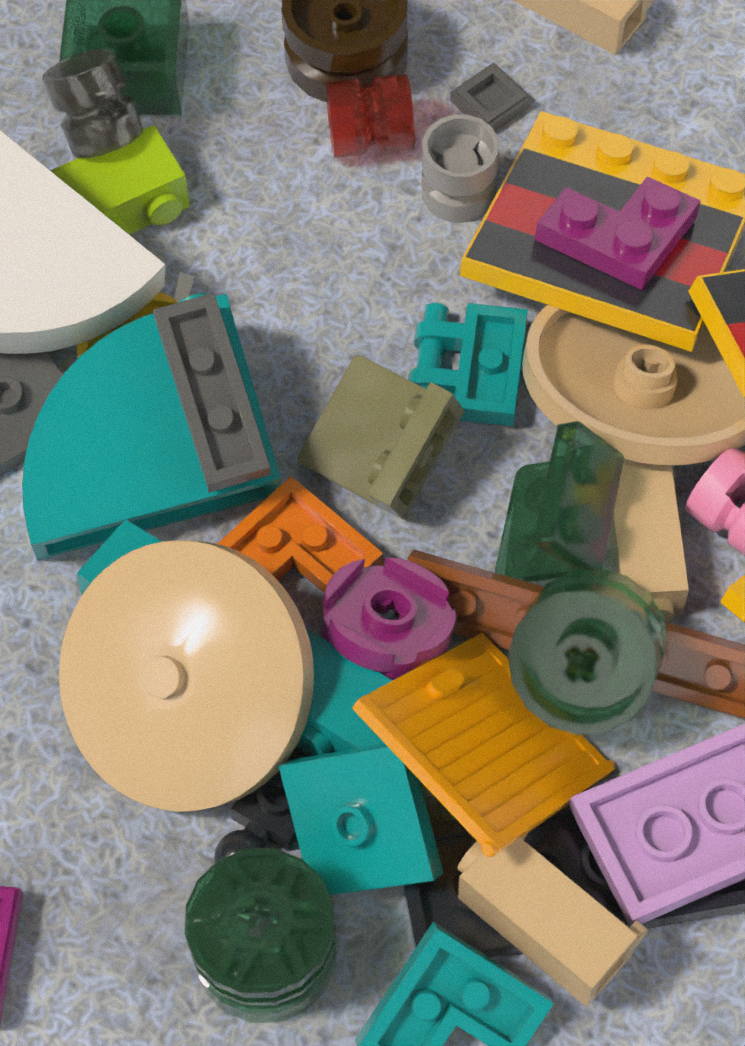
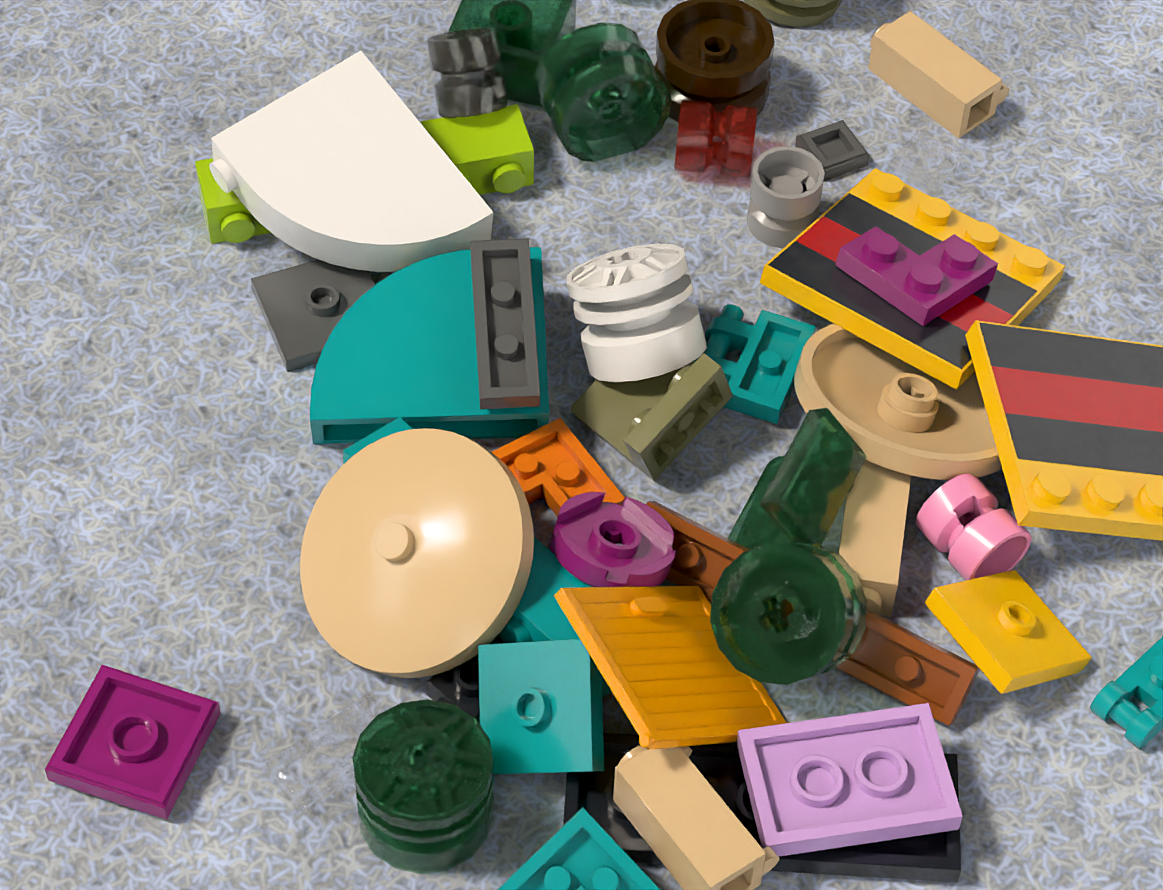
camera: 10 degrees right, 10 degrees down
(239, 91) = (602, 92): none -> clear green wheel
(343, 343) = (636, 312): none -> white wheel

